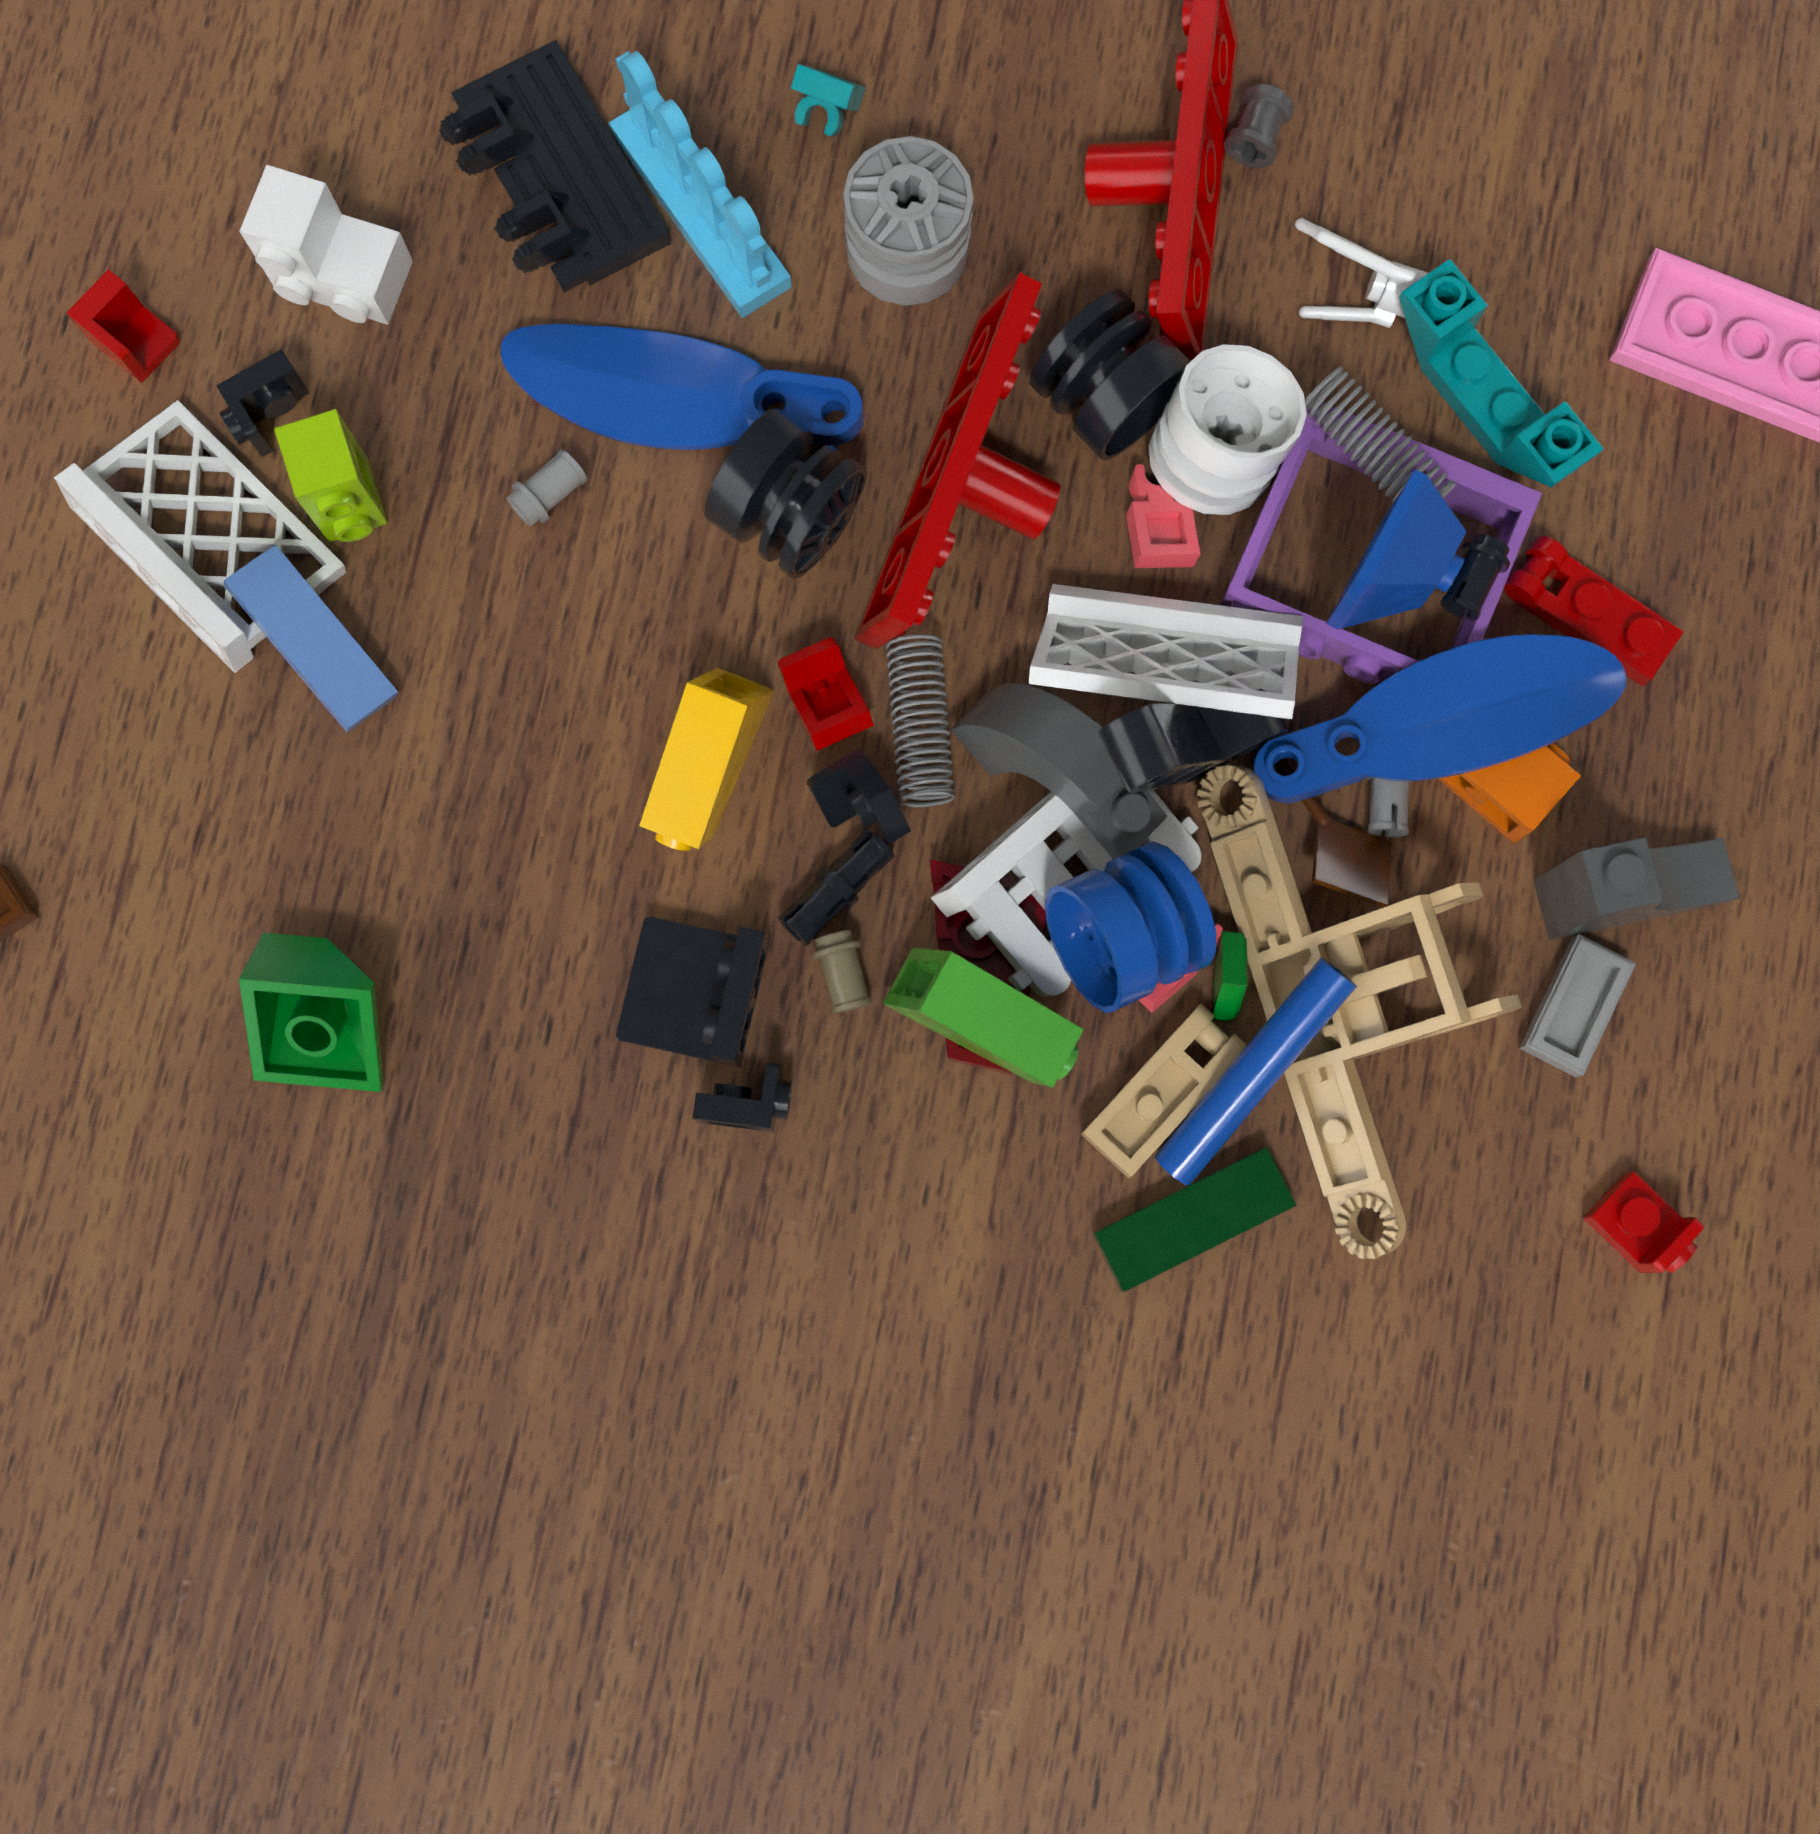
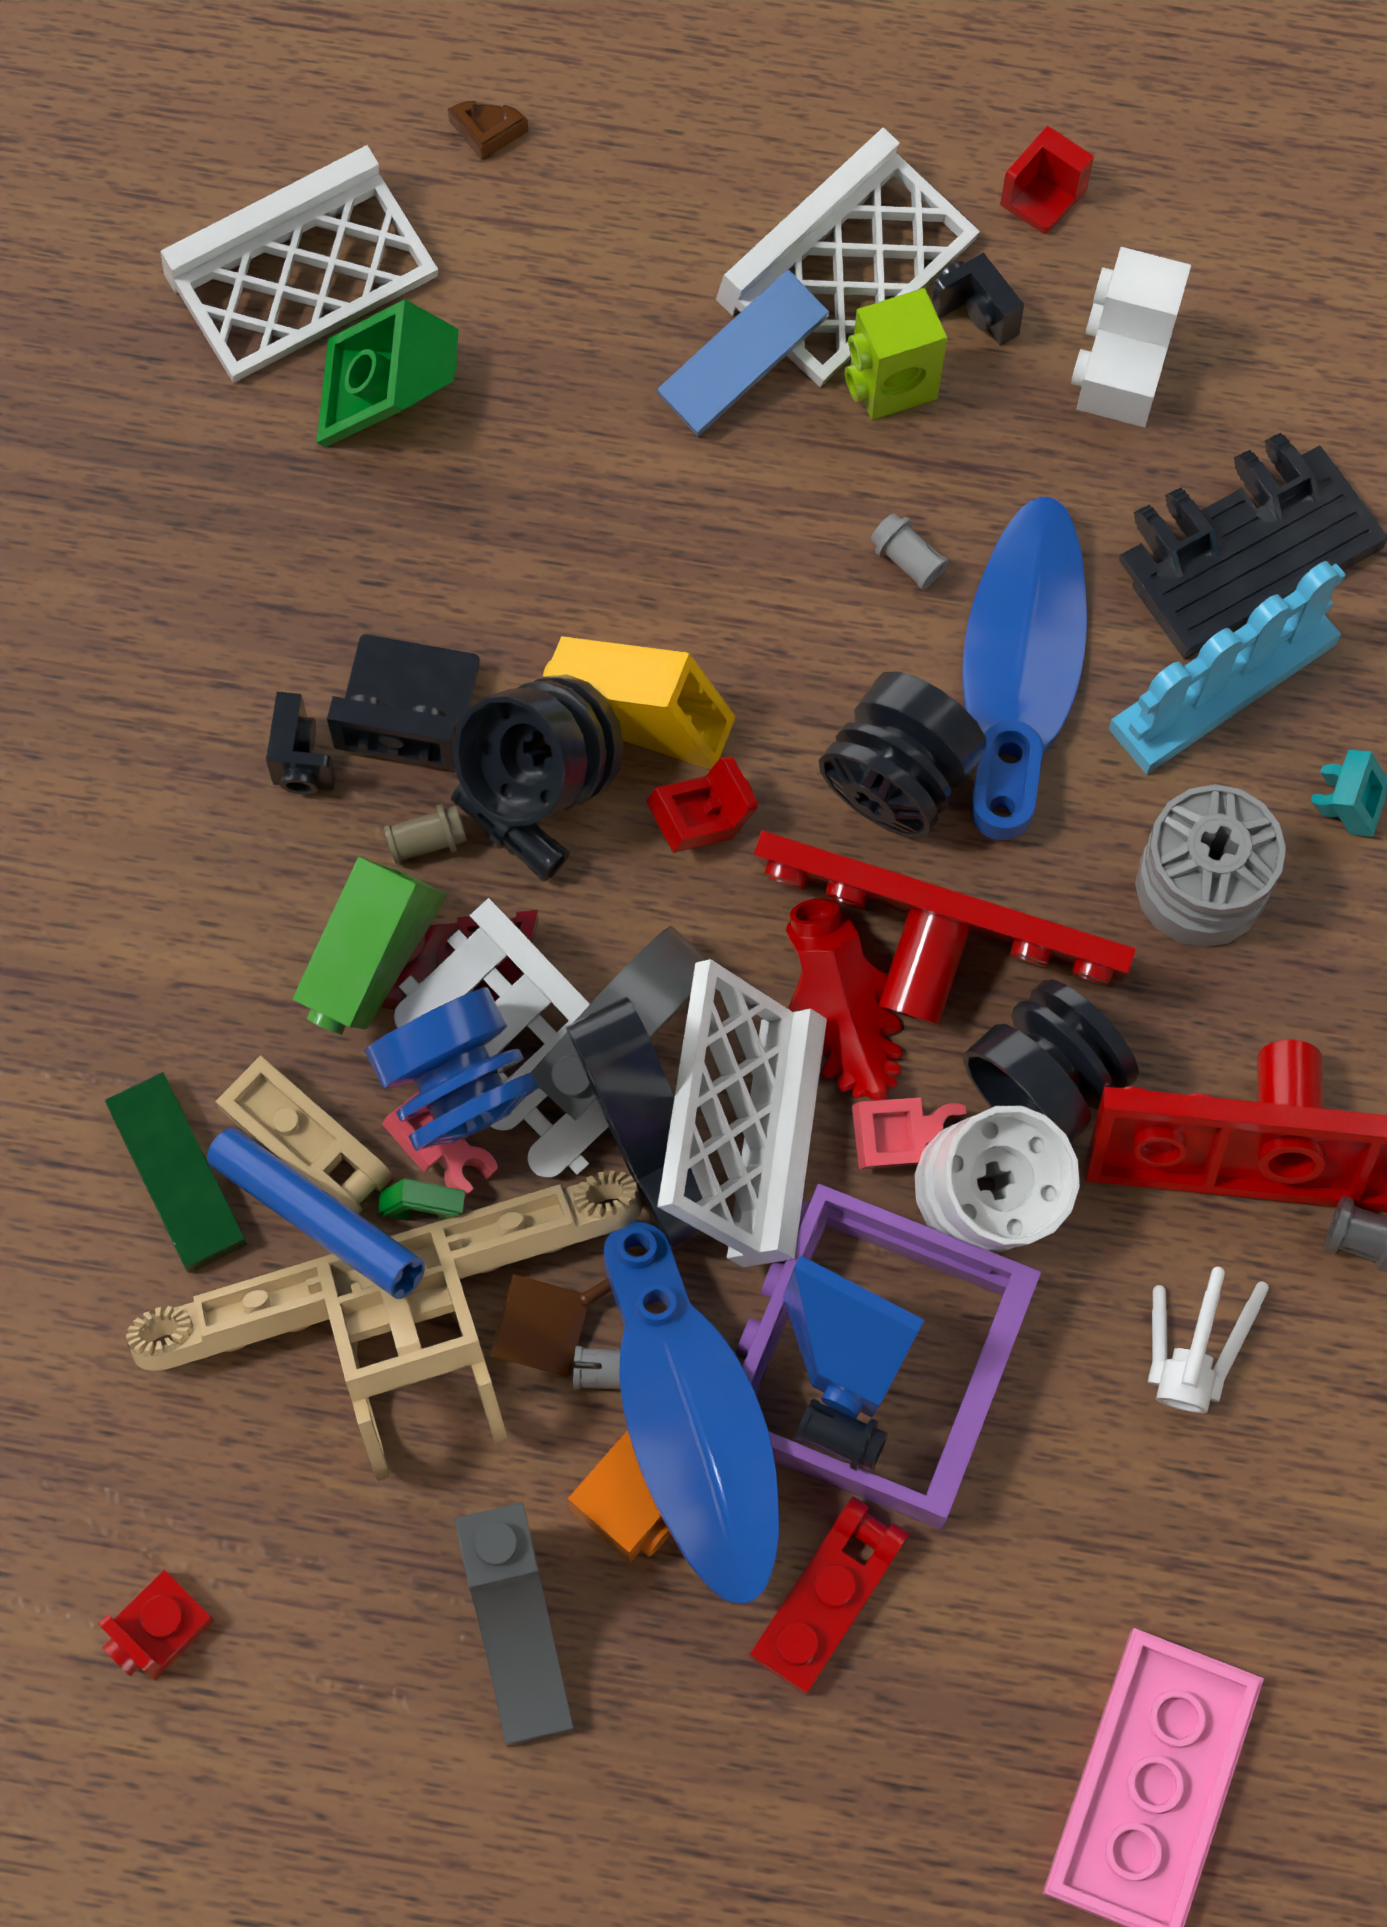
camera: 90 degrees right, 10 degrees down
(110, 1135) = (270, 223): none -> white fence
(776, 844) = (537, 749): none -> black wheel
(857, 789) = (599, 840): black bracket -> none
(922, 792) = (603, 903): light grey piece -> none
(1022, 573) = (847, 992): none -> red plant
(1318, 395) = (1041, 1280): light grey piece -> none
(1482, 390) = (1082, 1475): teal slope -> none
(1577, 1006) = (390, 1568): light grey tile -> none

